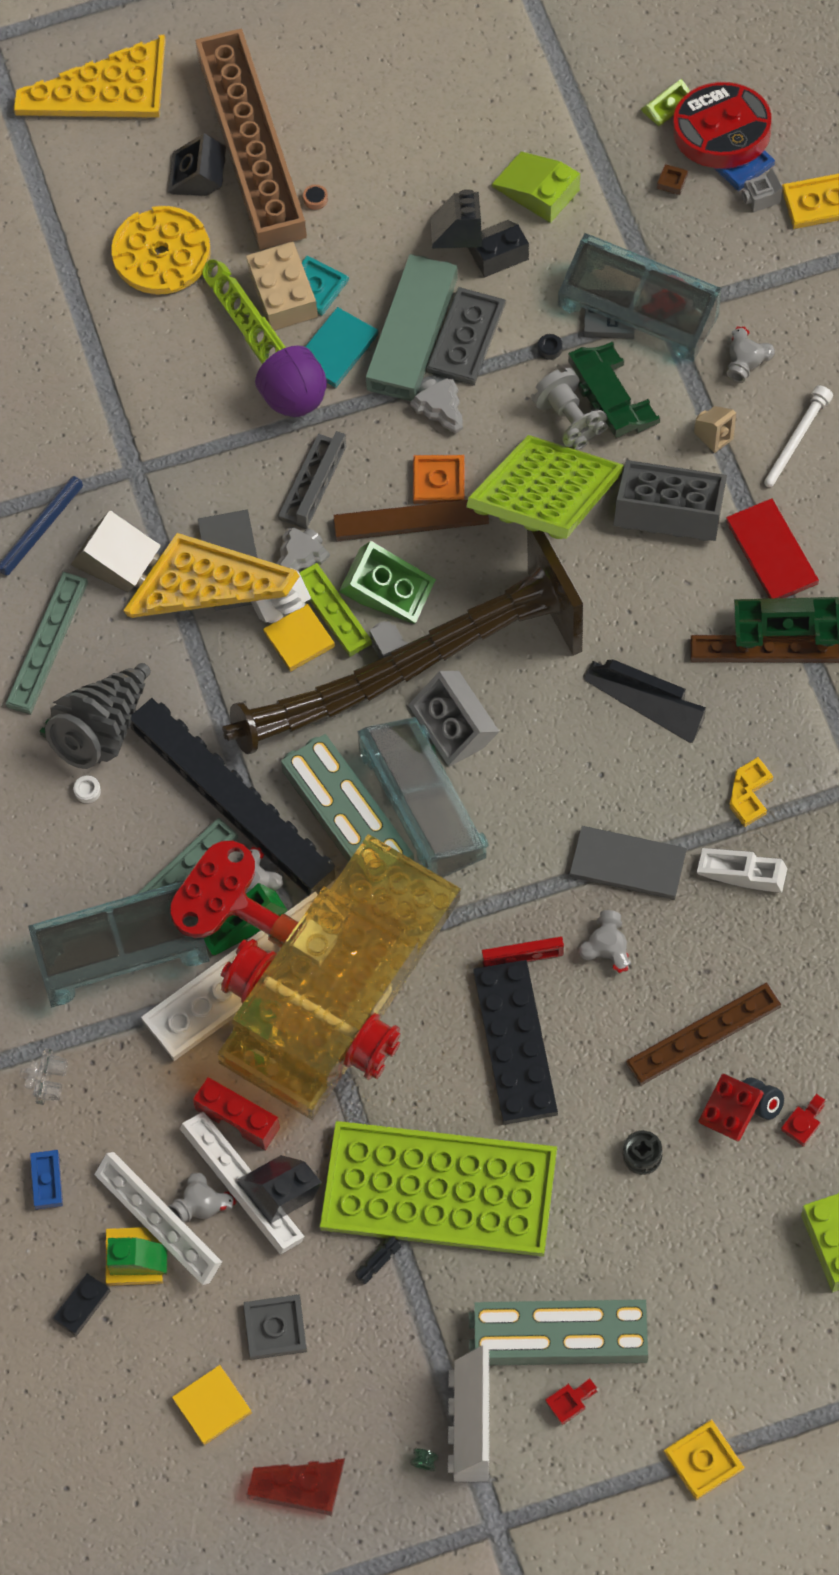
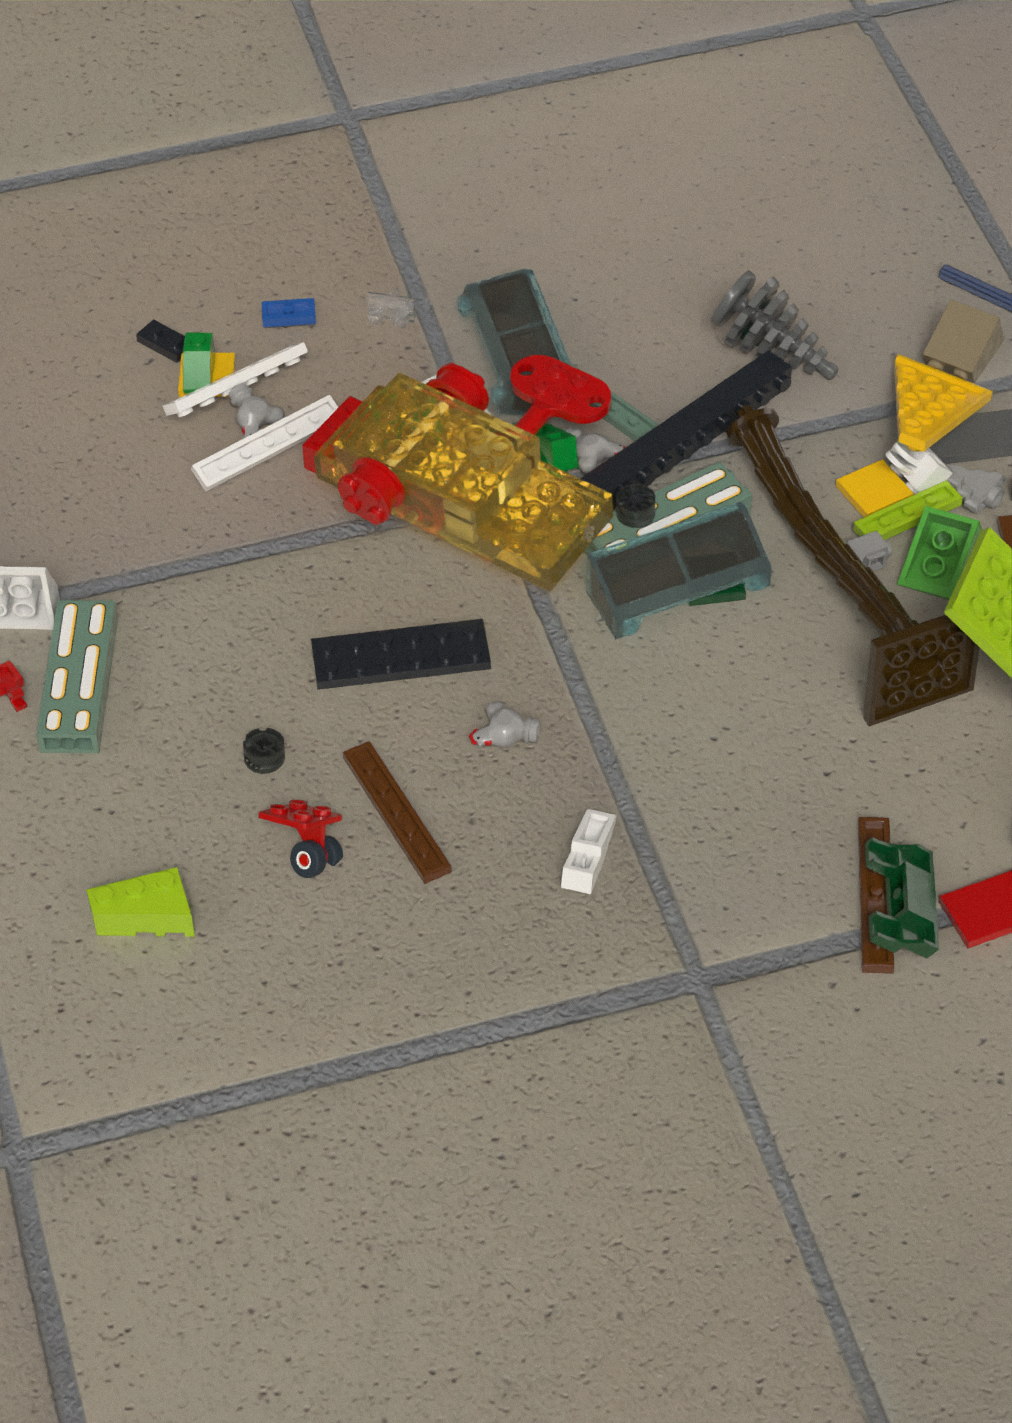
camera: 90 degrees right, 15 degrees down
(46, 643) = (863, 305): sand green tile -> none
(87, 789) = (697, 336): white tile -> none
(212, 1405) = (53, 428): yellow tile -> none
(275, 1327) = (122, 471): dark grey tile -> none
(280, 1186) = (256, 464): black slope -> none
(349, 828) = (635, 505): none -> pearl dark grey wheel
(377, 1260) = (177, 543): black axle -> none
(439, 1188) = (243, 590): lime plate -> none
(453, 717) = (780, 608): light grey slope -> none
(524, 951) = (497, 657): red tile -> none
(628, 862) = (603, 754): dark grey tile -> none
(649, 696) = (807, 782): black wedge -> none
(747, 781) = (676, 860): yellow tile -> none
(802, 1123) = (283, 891): red plate -> none

